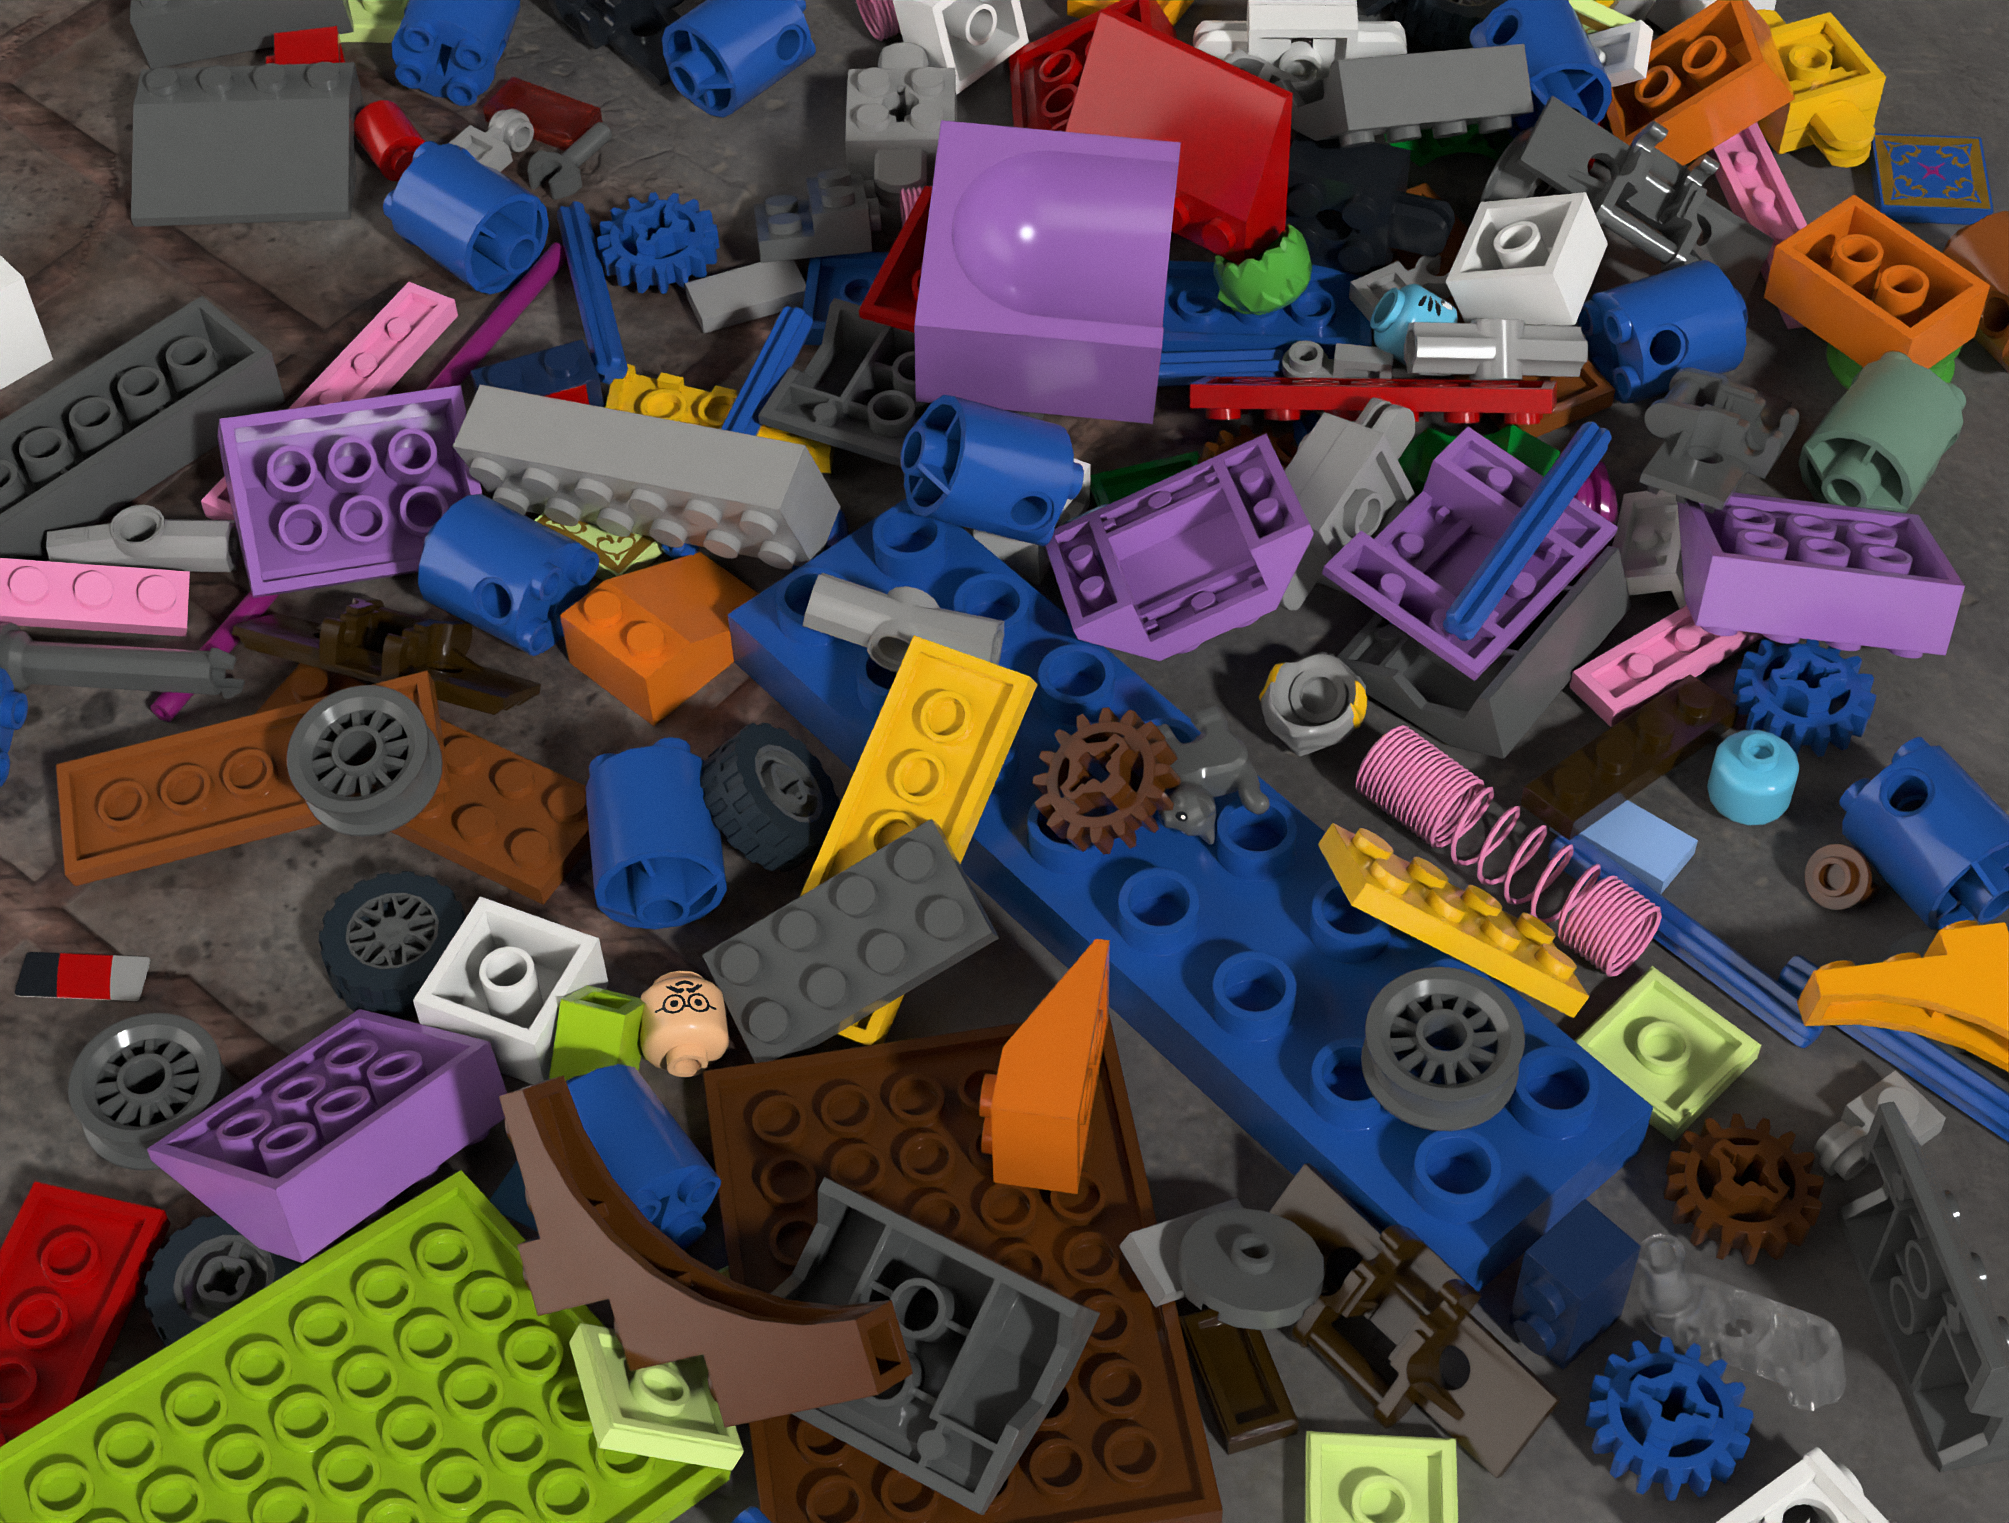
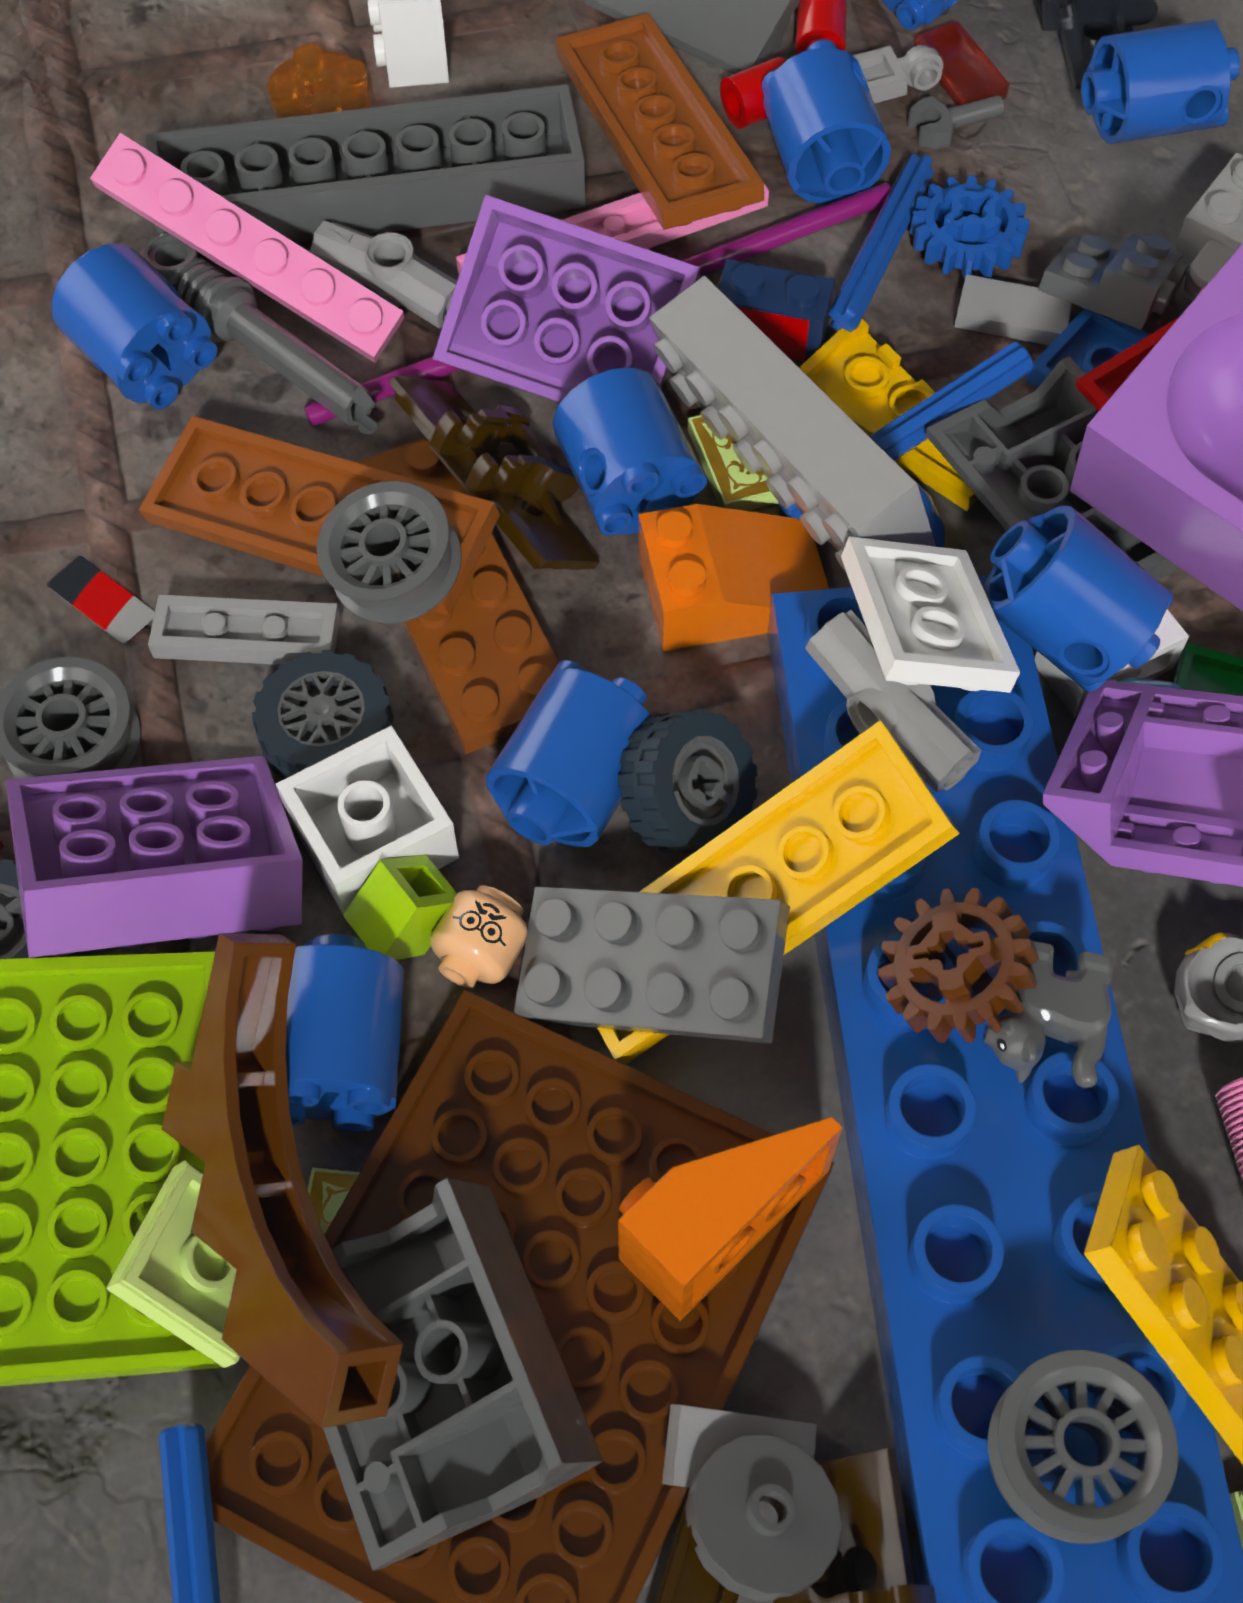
camera: 35 degrees right, 10 degrees up
(252, 918) = (241, 629): none -> light grey plate
(303, 288) = (659, 121): none -> dark orange plate
(365, 229) = (743, 94): none -> red brick
(886, 542) = (928, 616): none -> white plate

